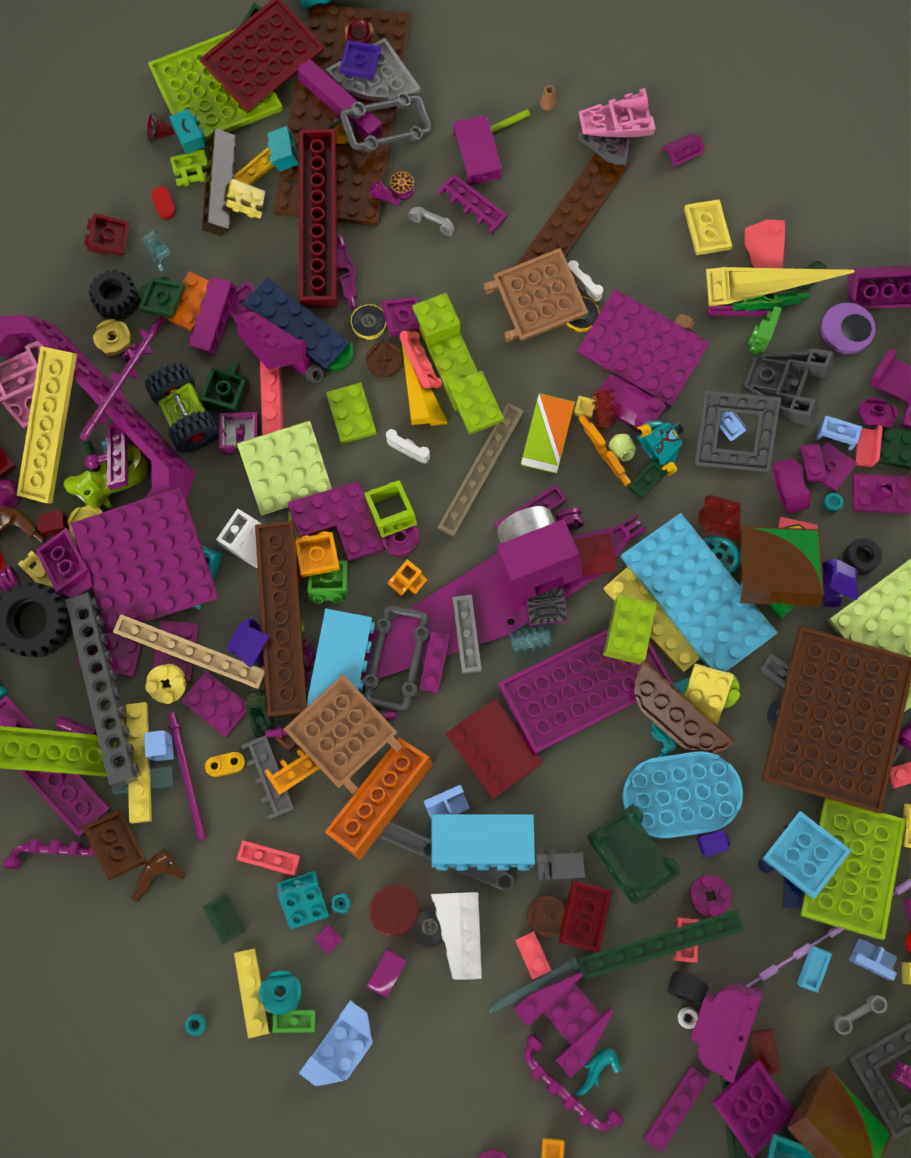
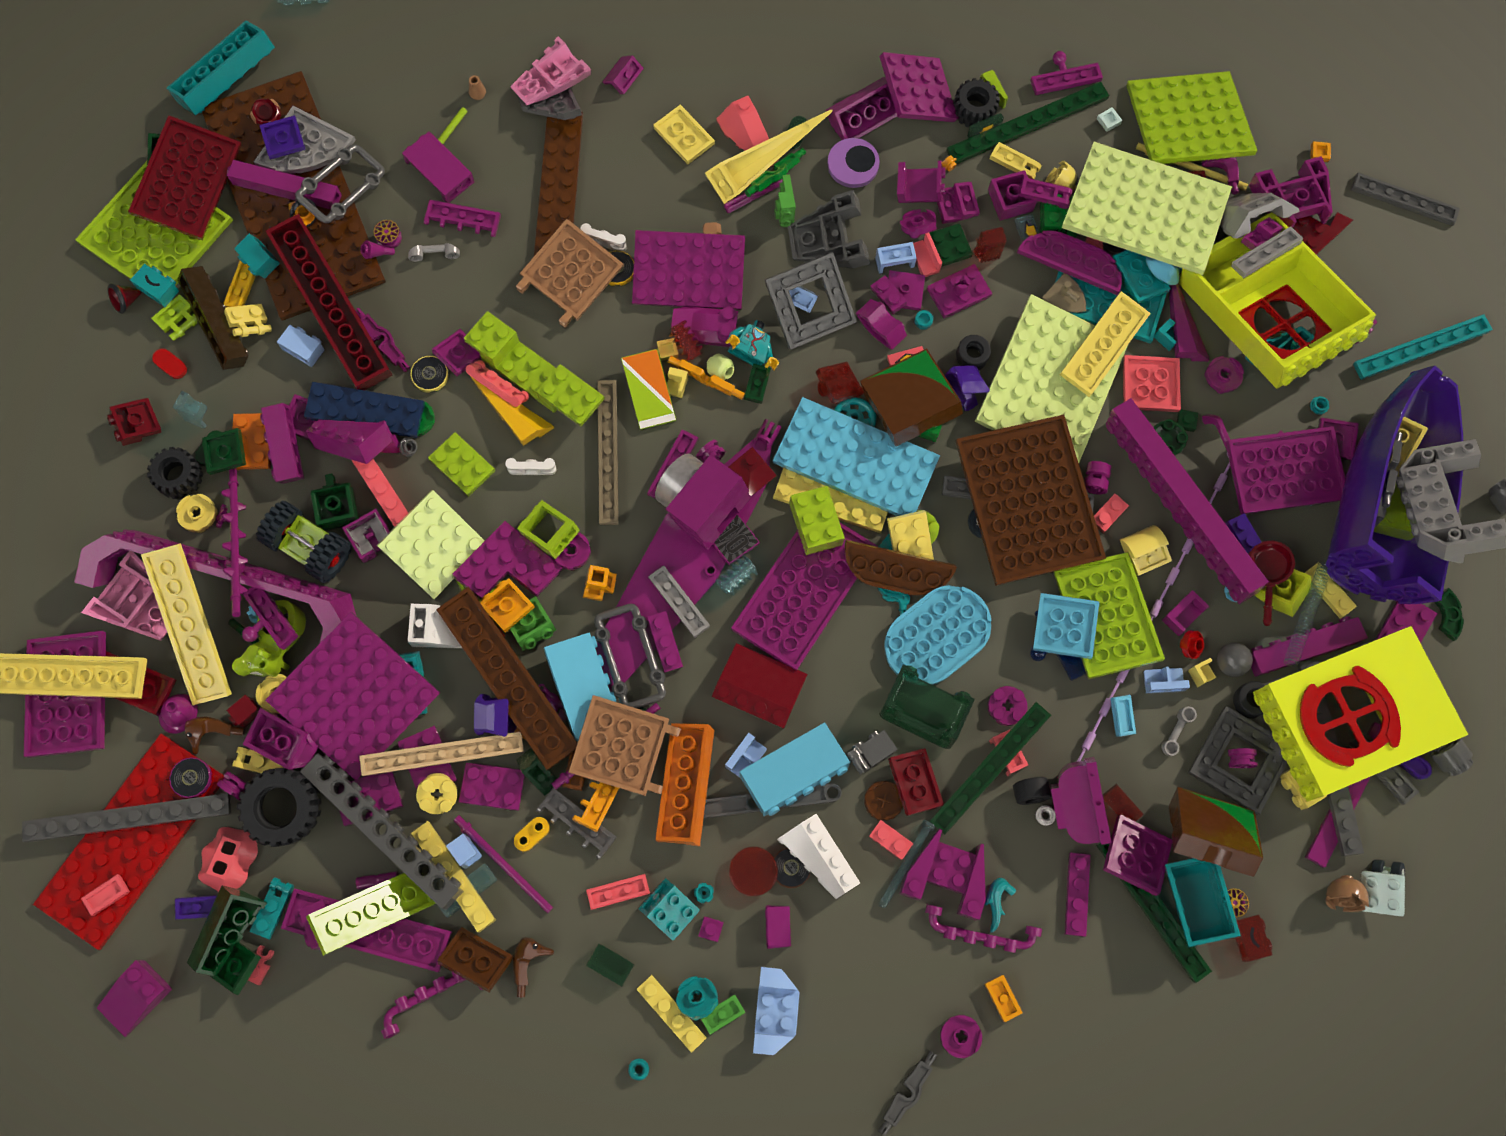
camera: 35 degrees left, 0 degrees up
(276, 242) = (300, 345): none -> light blue brick
(384, 359) = (463, 400): reddish brown tile -> none
(576, 440) = (677, 382): none -> light yellow panel
(713, 843) = (986, 660): dark purple brick -> none

